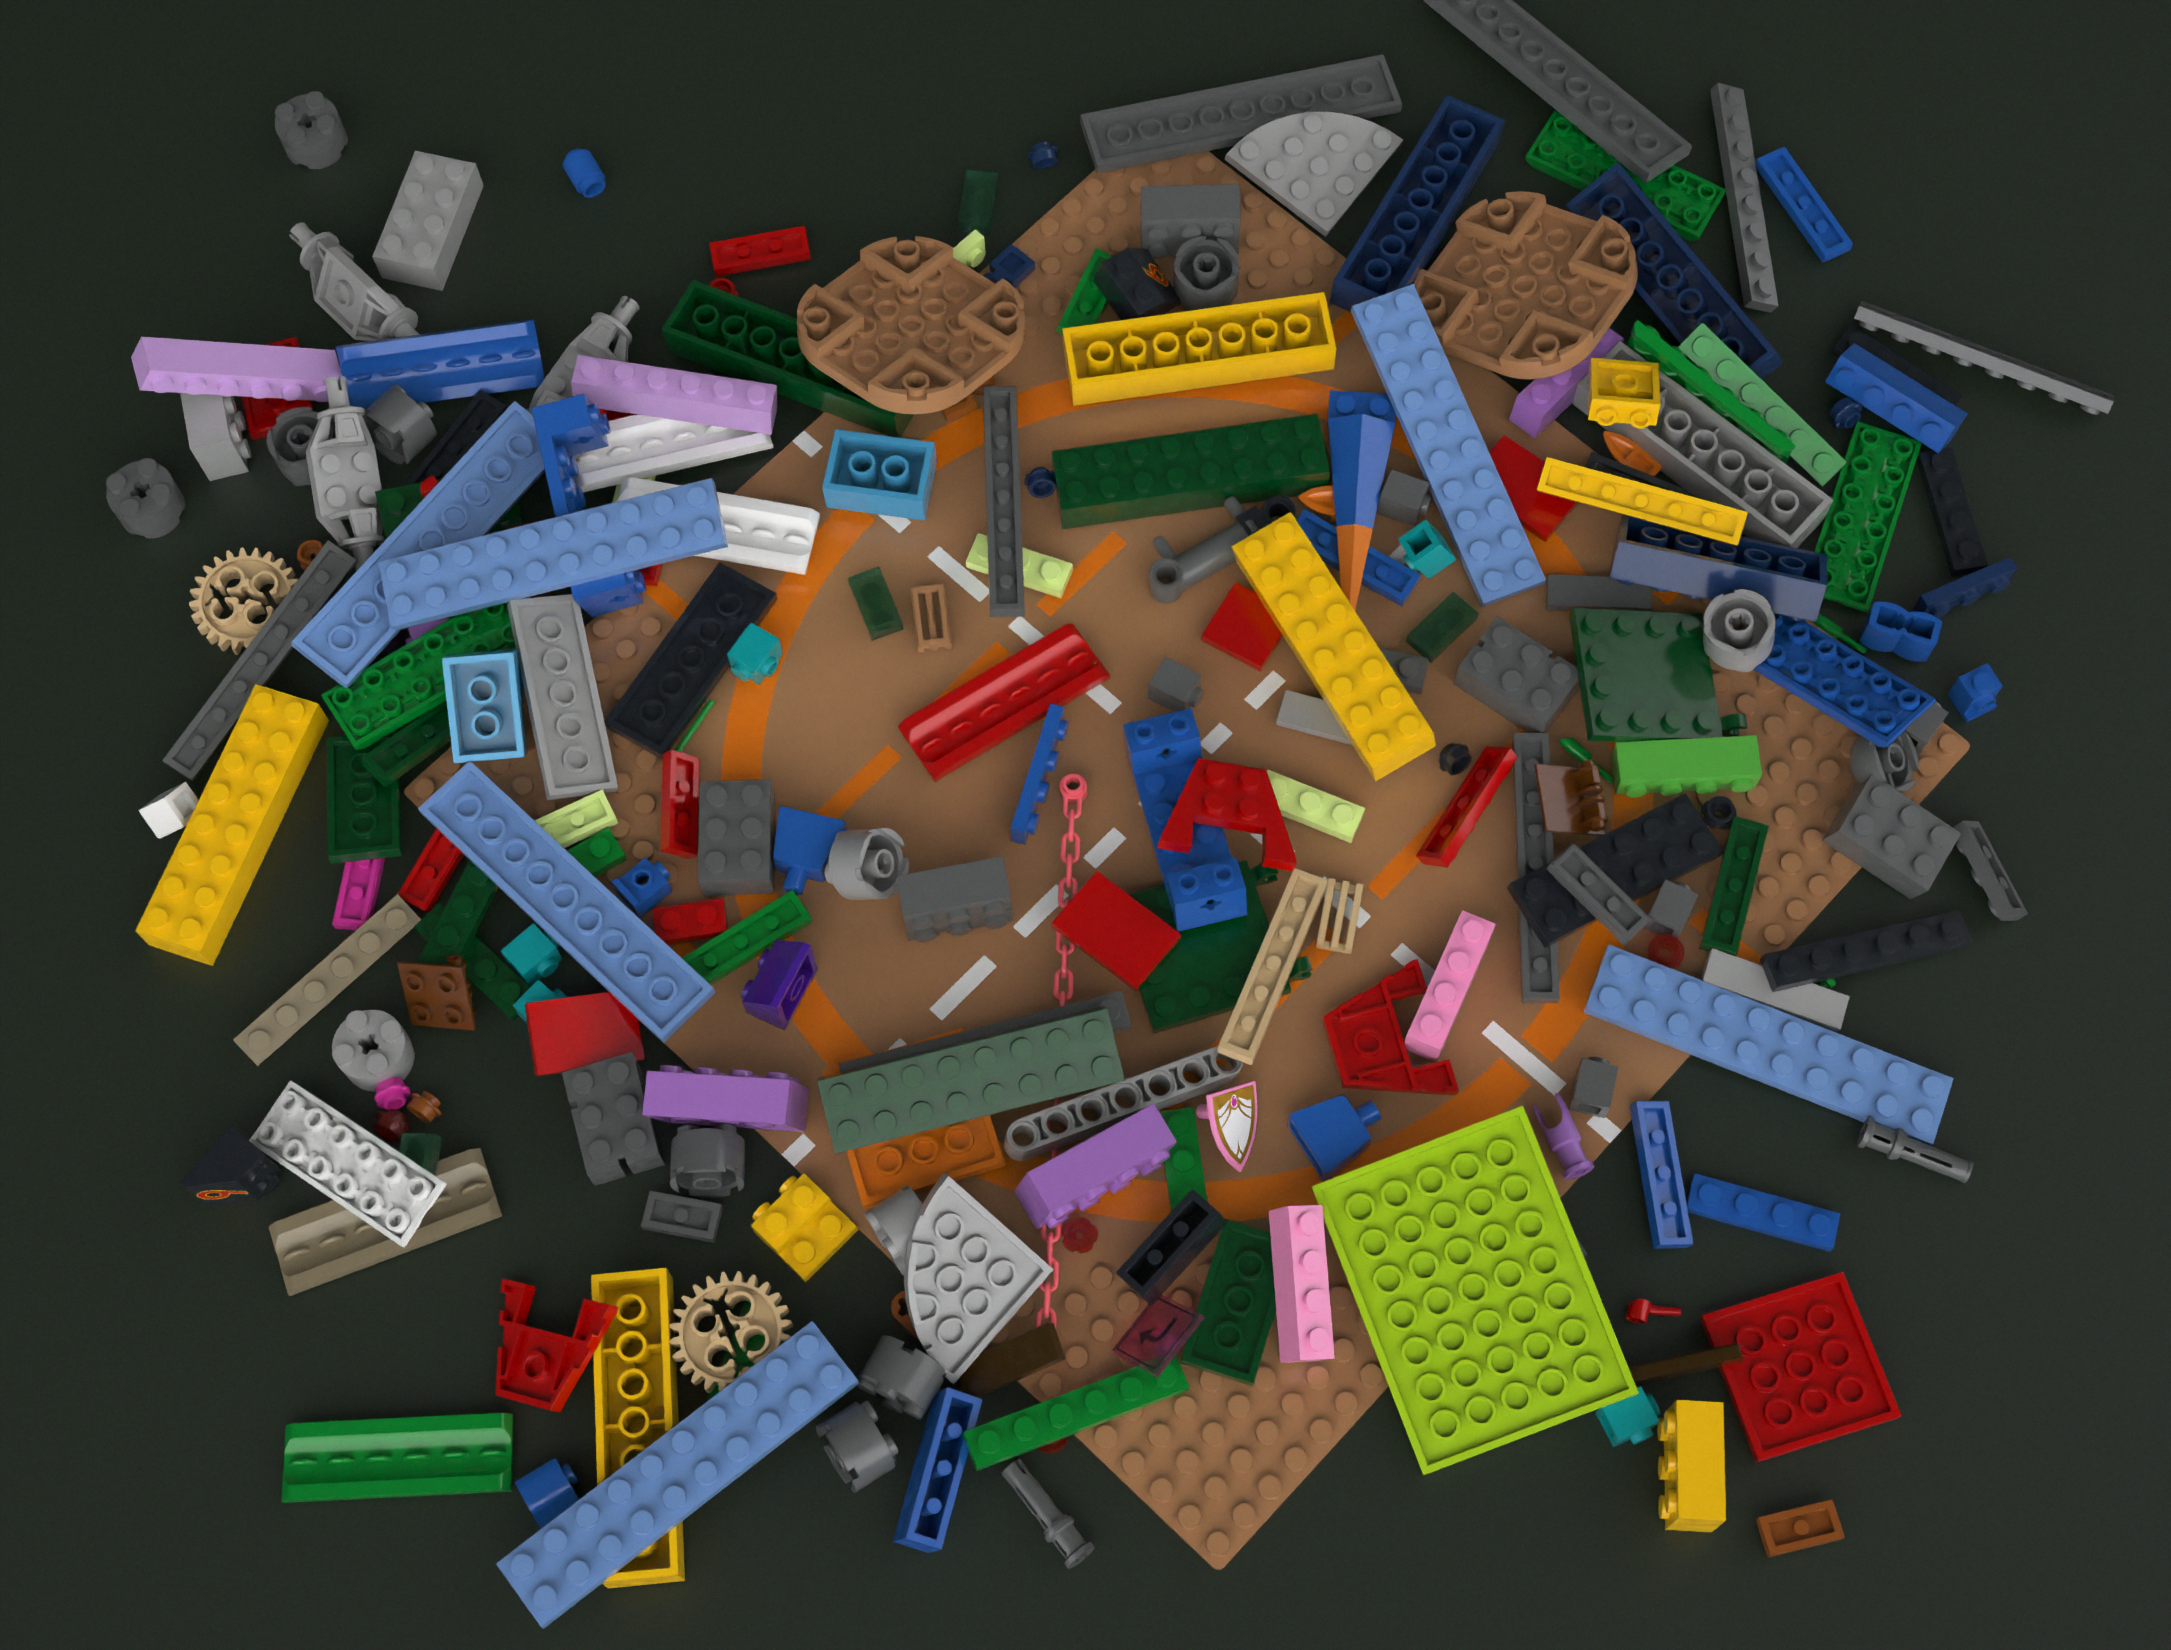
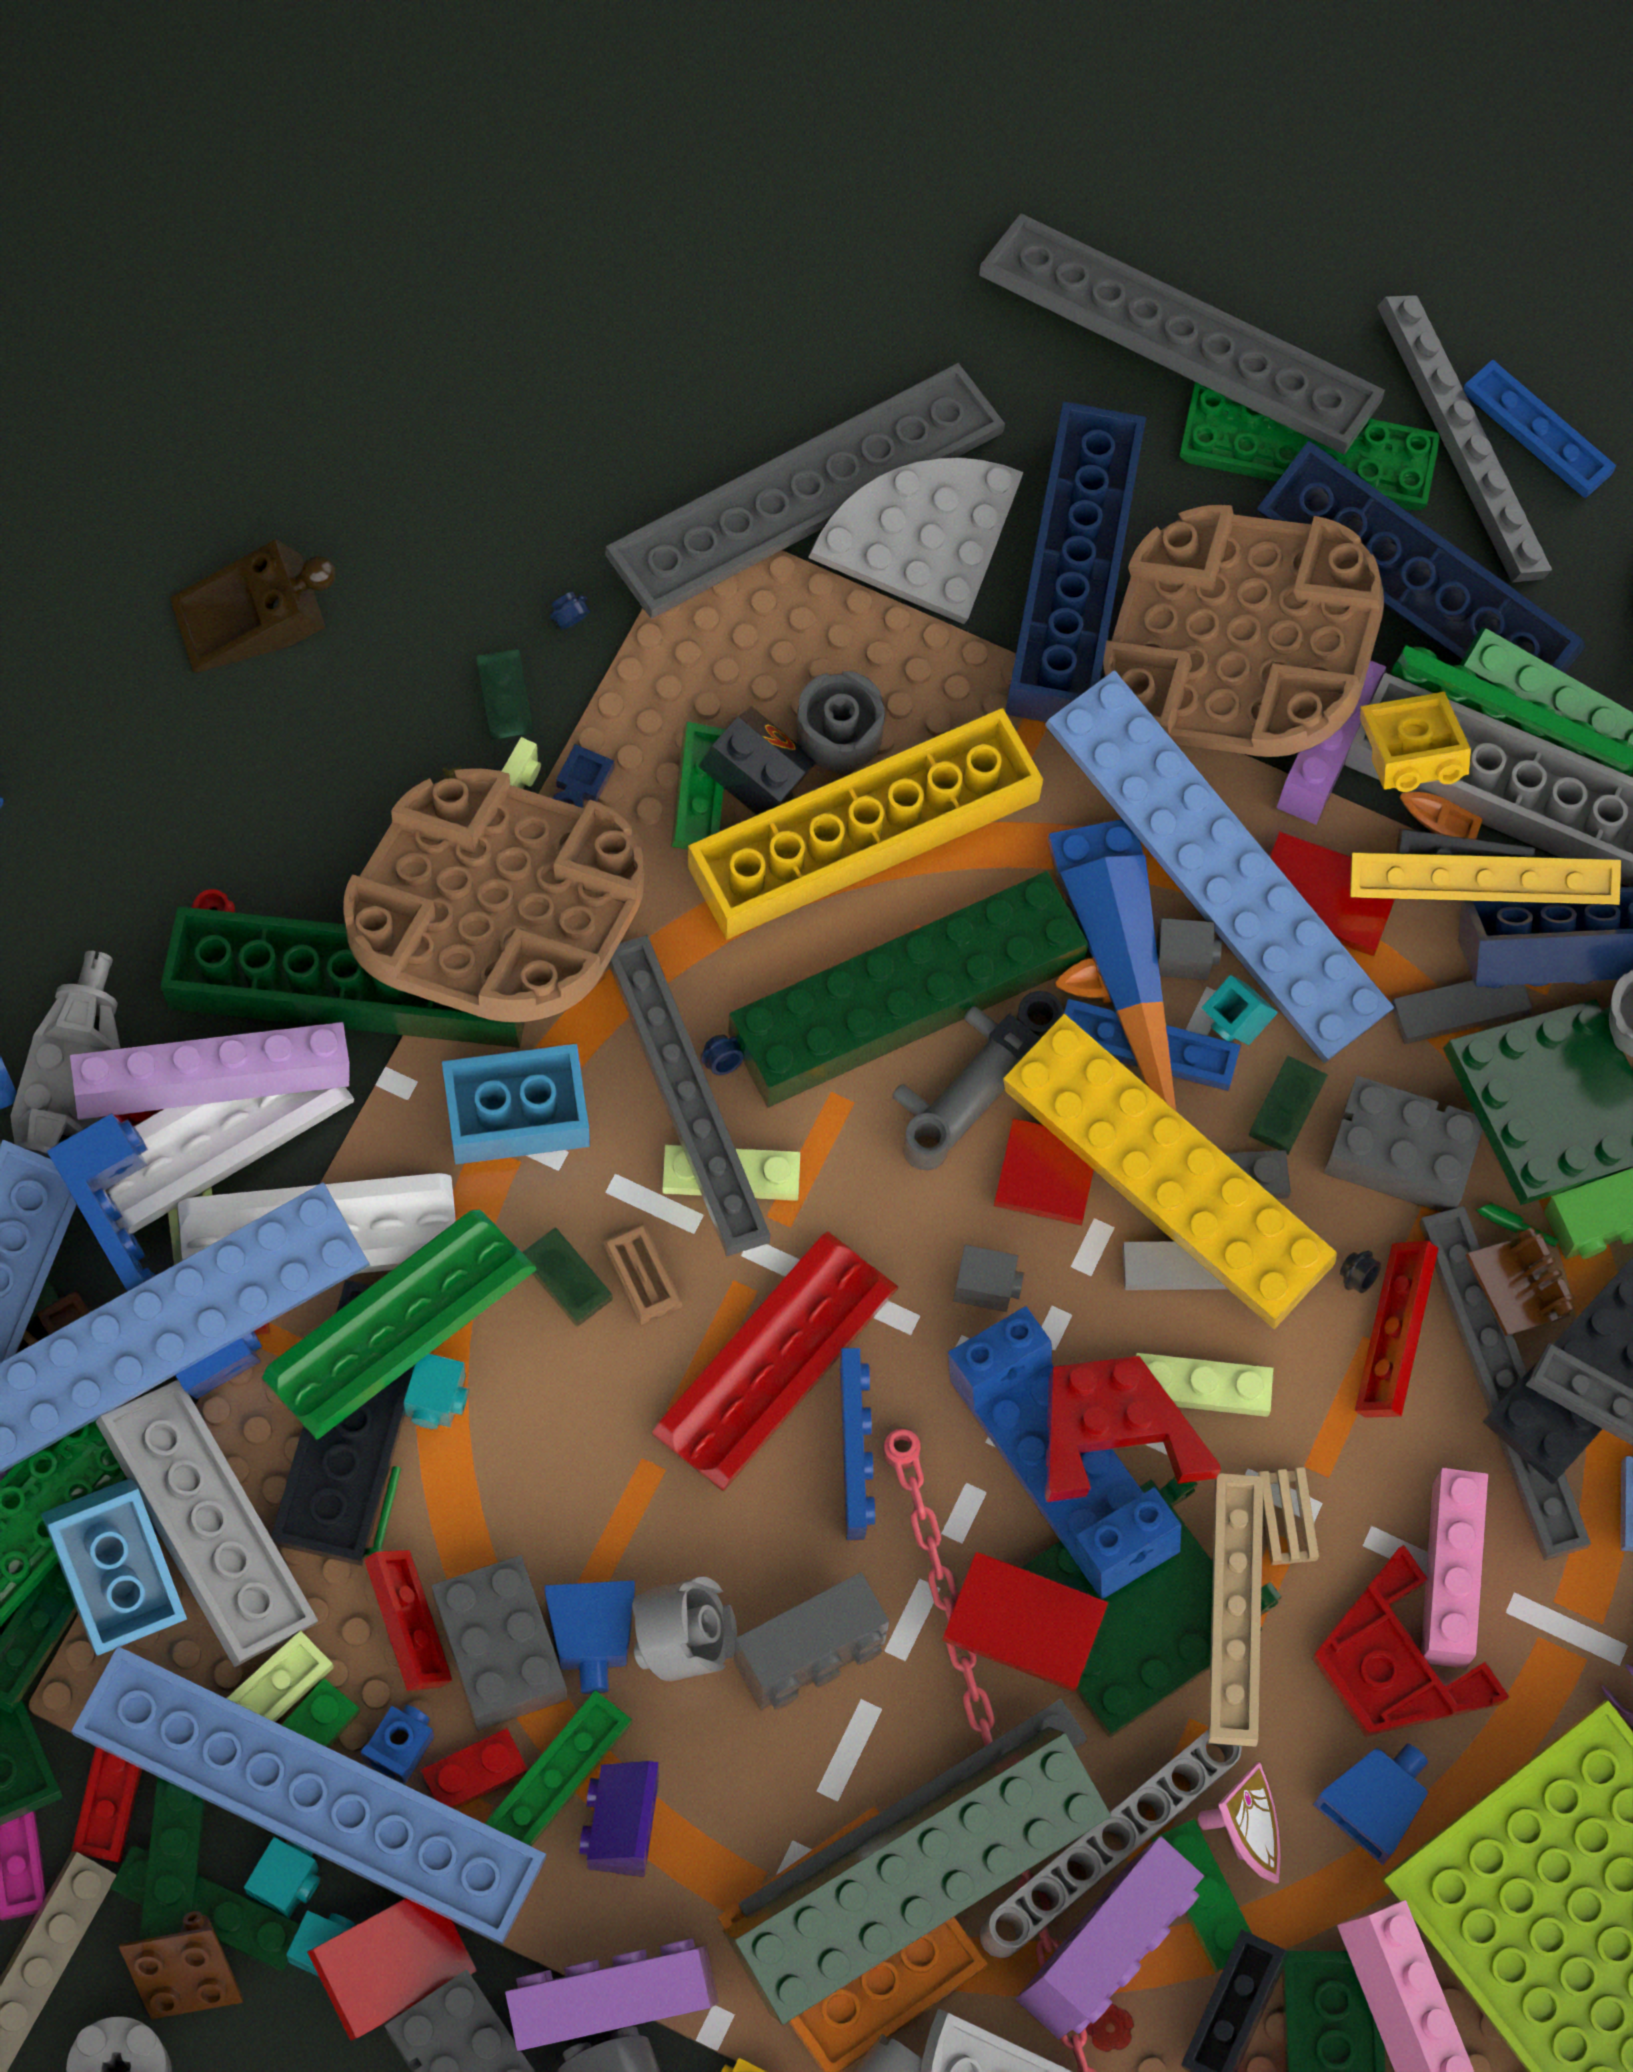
camera: 25 degrees left, 0 degrees up
(741, 597) = (396, 1322): none -> green plate
(760, 251) = (243, 838): red plate -> none
(822, 97) = (252, 606): none -> dark brown slope
(1184, 212) = (781, 655): dark grey brick -> none

